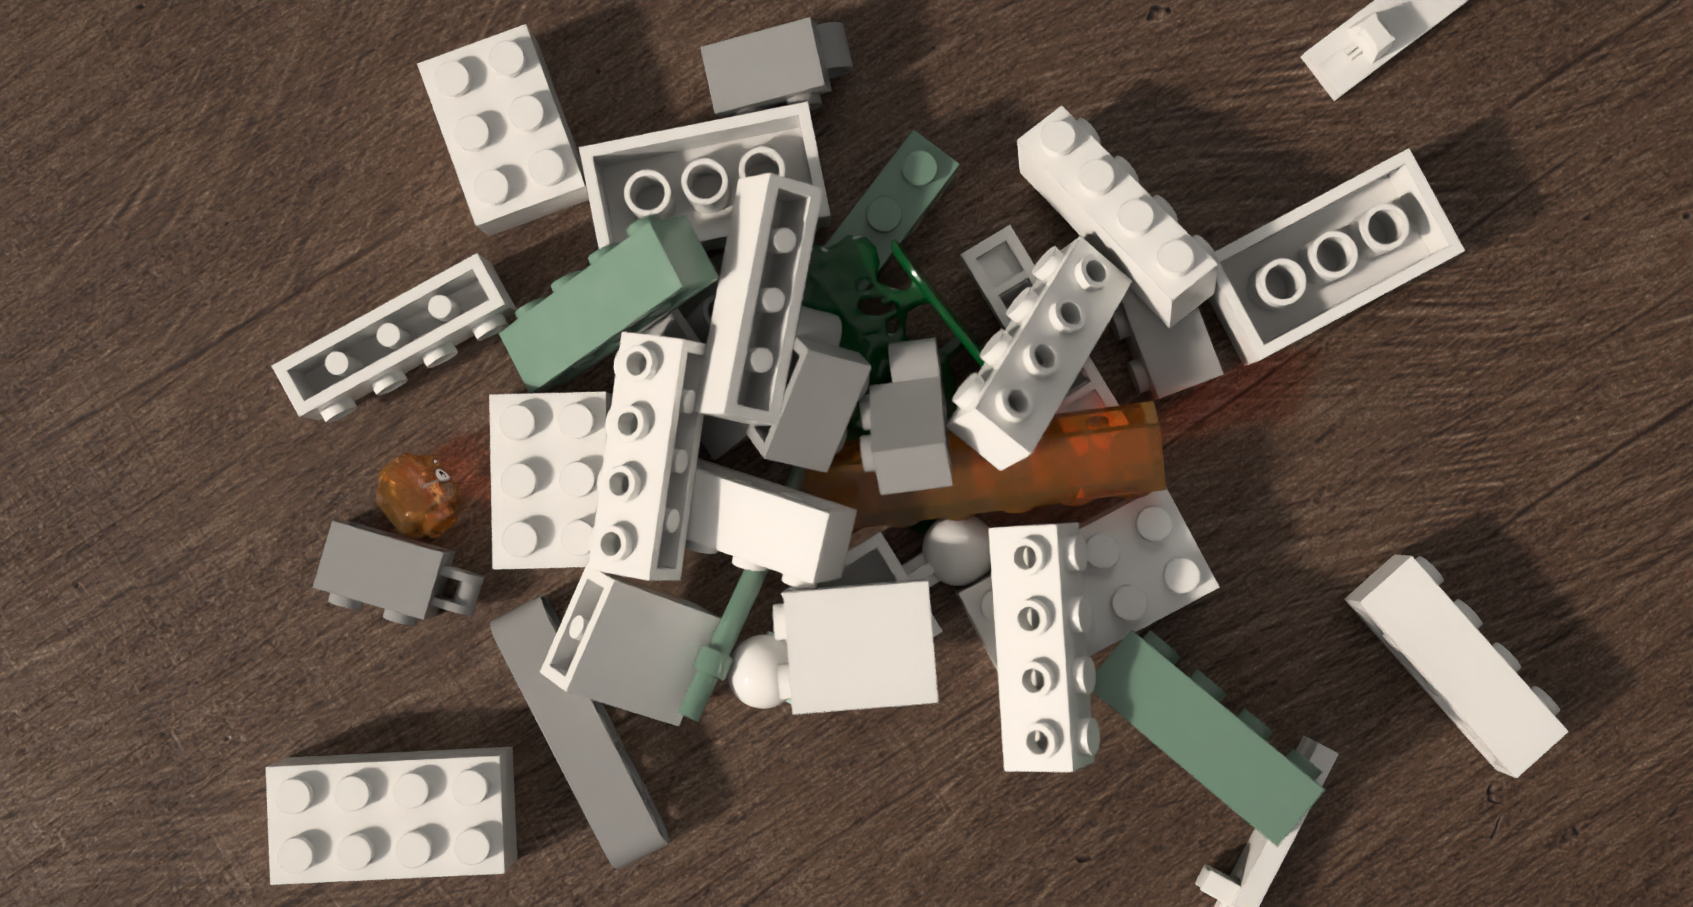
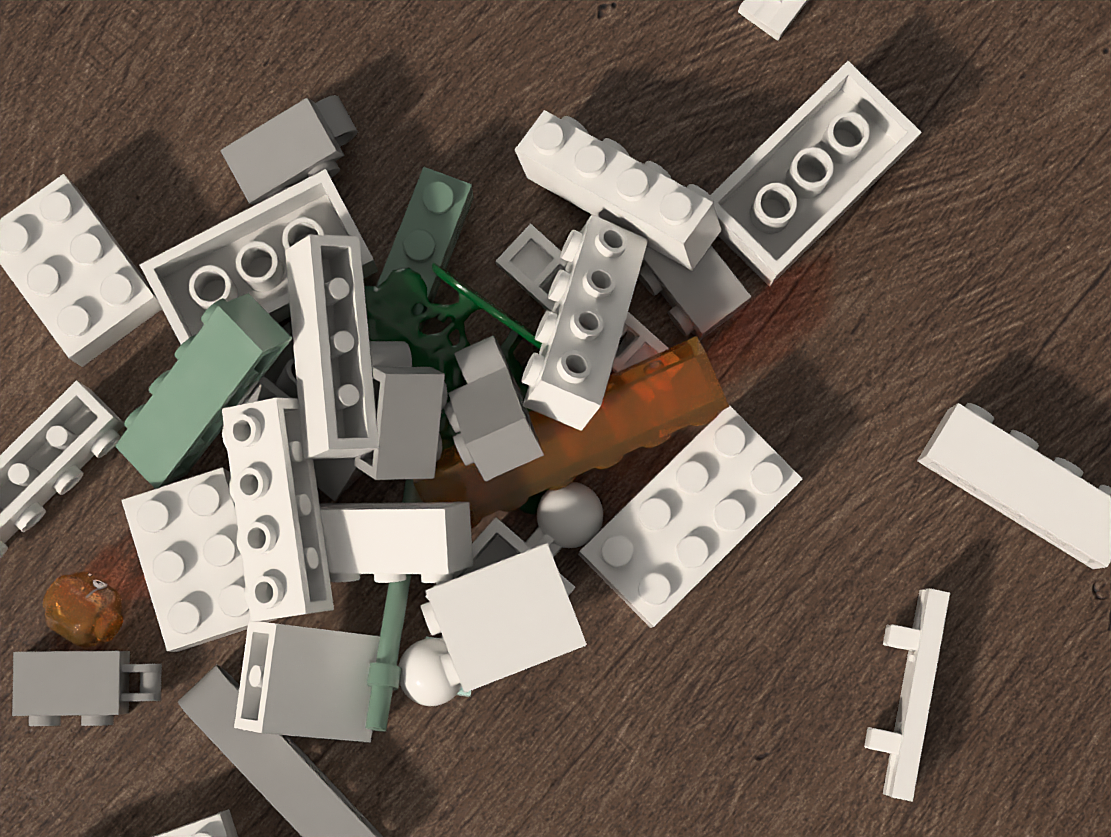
camera: 25 degrees left, 5 degrees down
(1043, 647) = (663, 570): white brick -> none
(1205, 737) = (828, 609): sand green brick -> none

